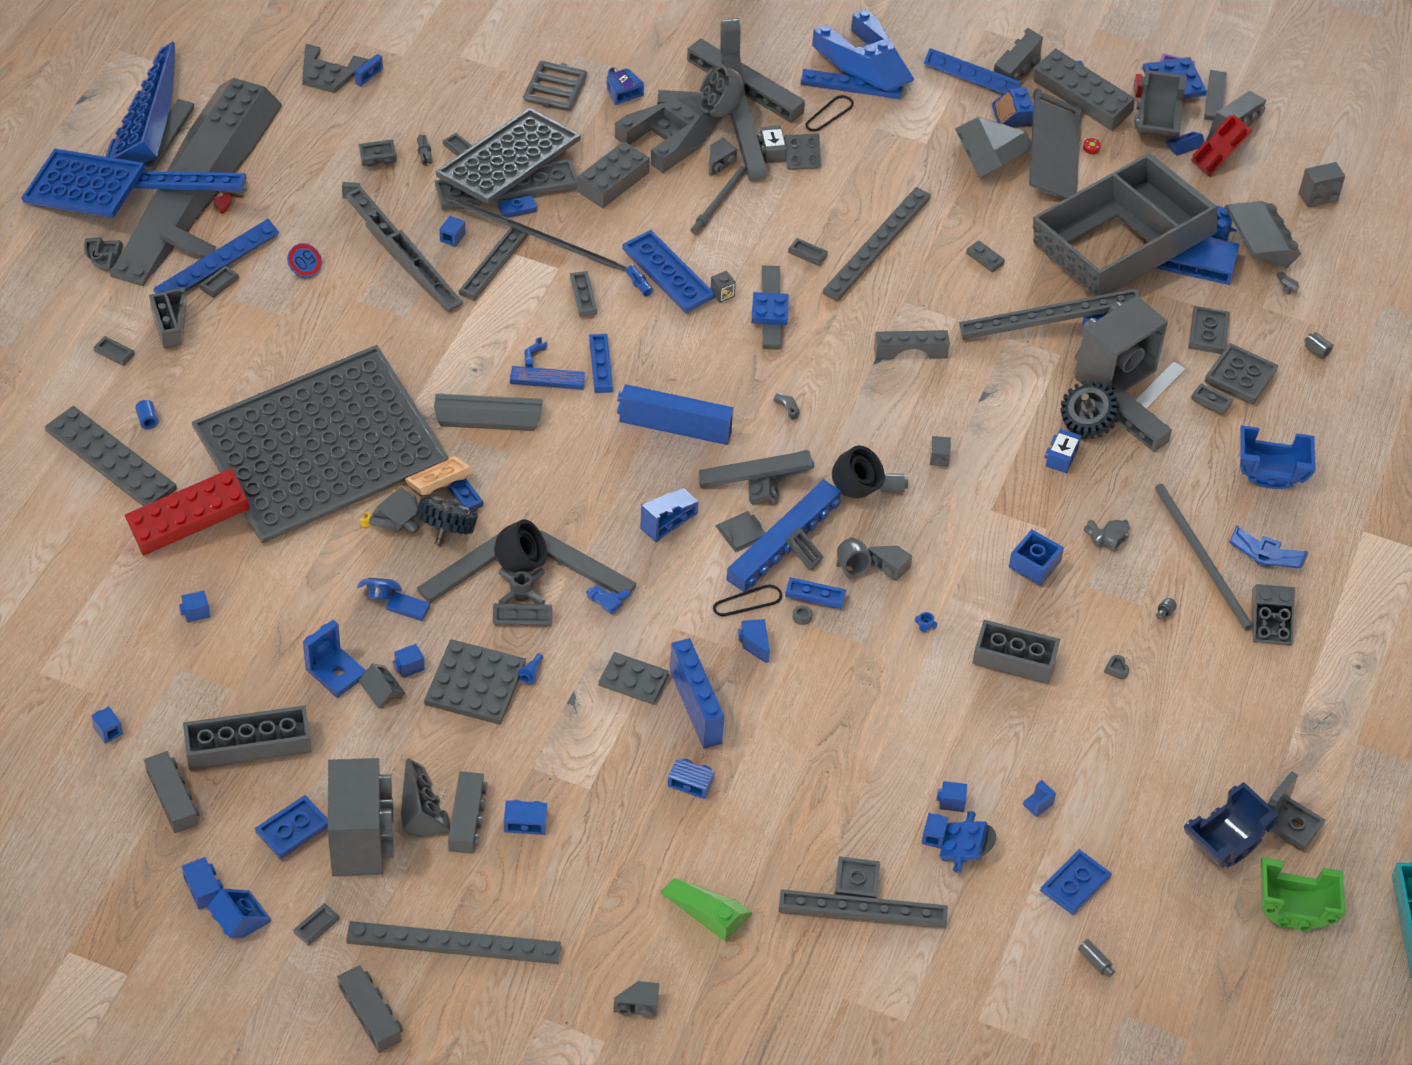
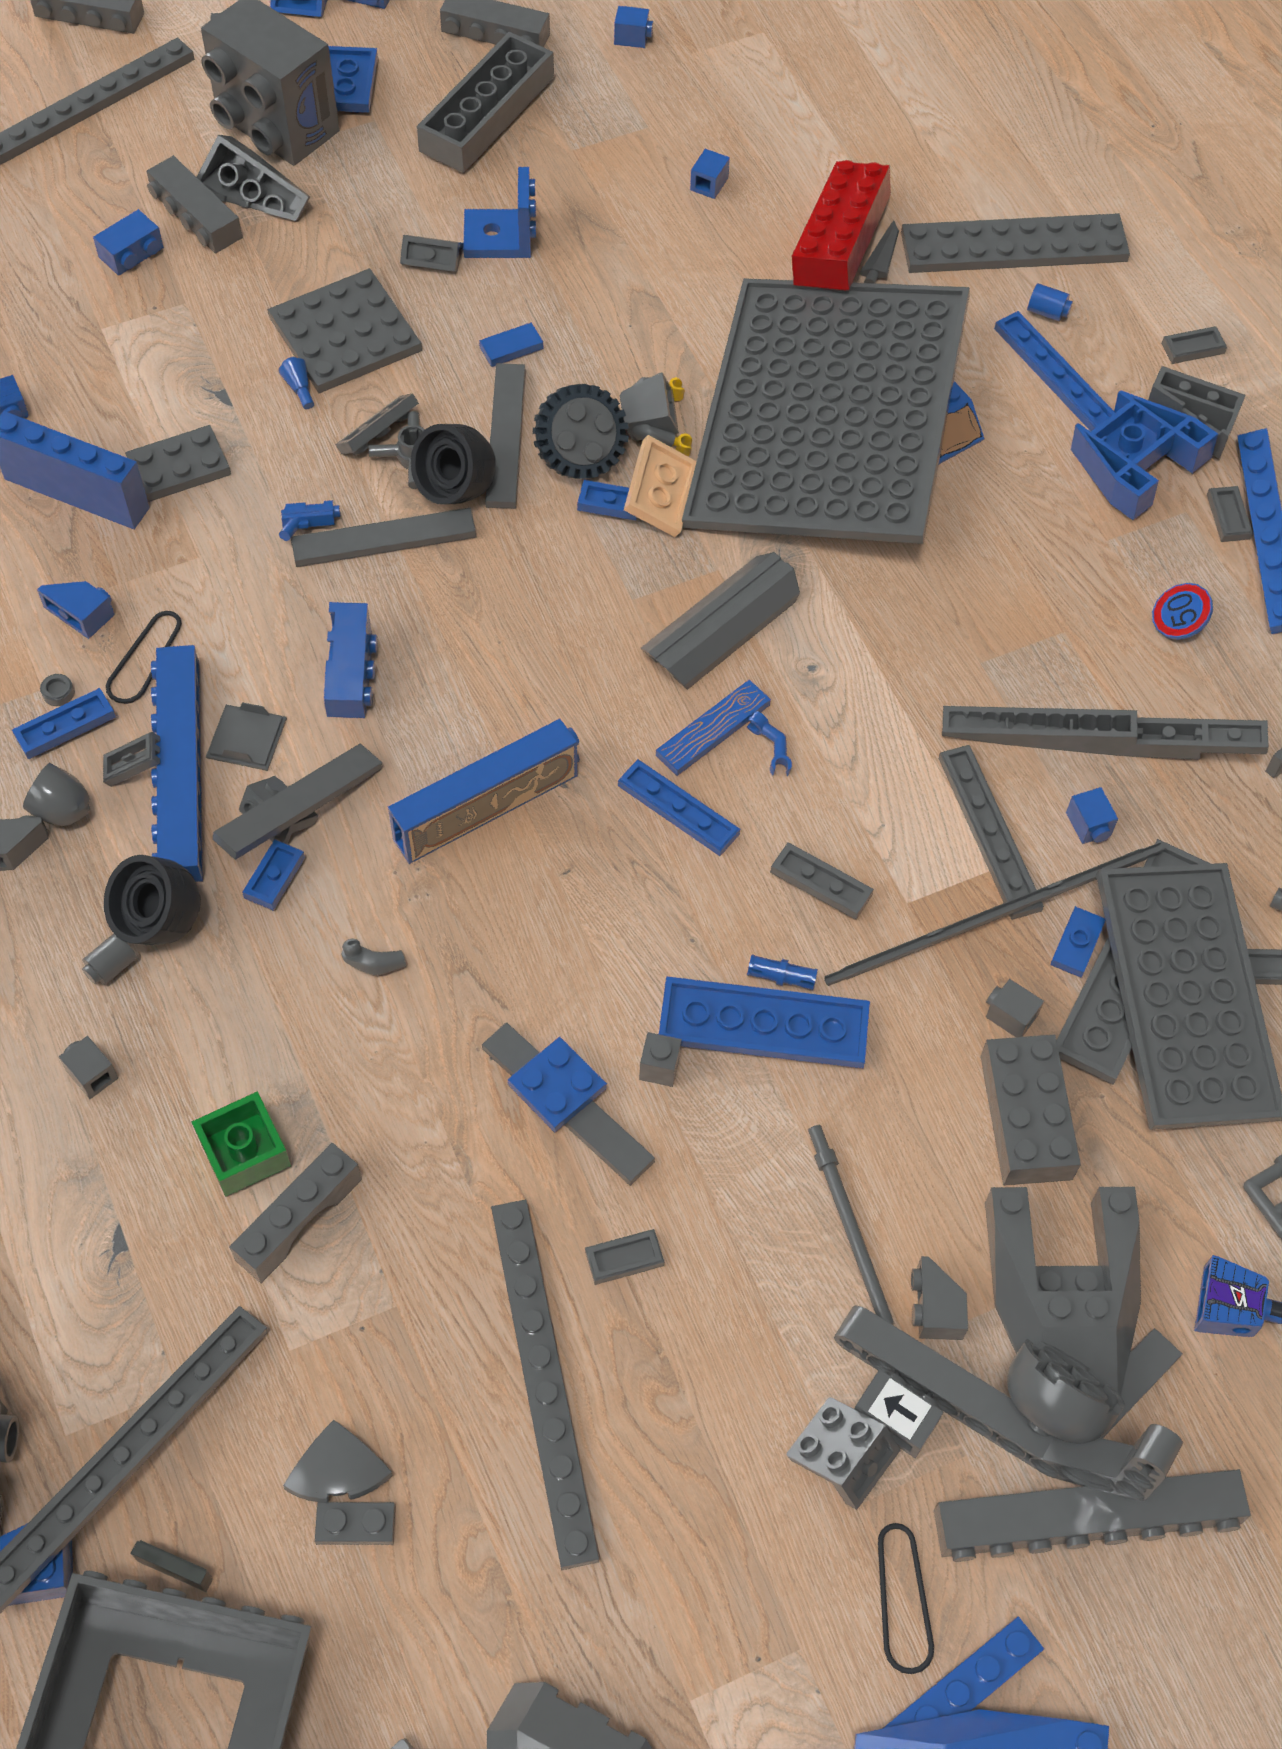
camera: 135 degrees right, 10 degrees up
(191, 388) = (1053, 370): none -> blue tile
(221, 325) = (1131, 442): none -> blue wedge
(379, 587) = (557, 324): blue hat -> none
(409, 660) = (432, 288): blue brick -> none
(573, 203) = (1013, 1008): none -> dark grey brick
(909, 376) = (241, 1143): none -> green brick
(977, 270) = (336, 1465): none -> dark grey brick
(1059, 285) = (171, 1565): none -> pearl dark grey tile

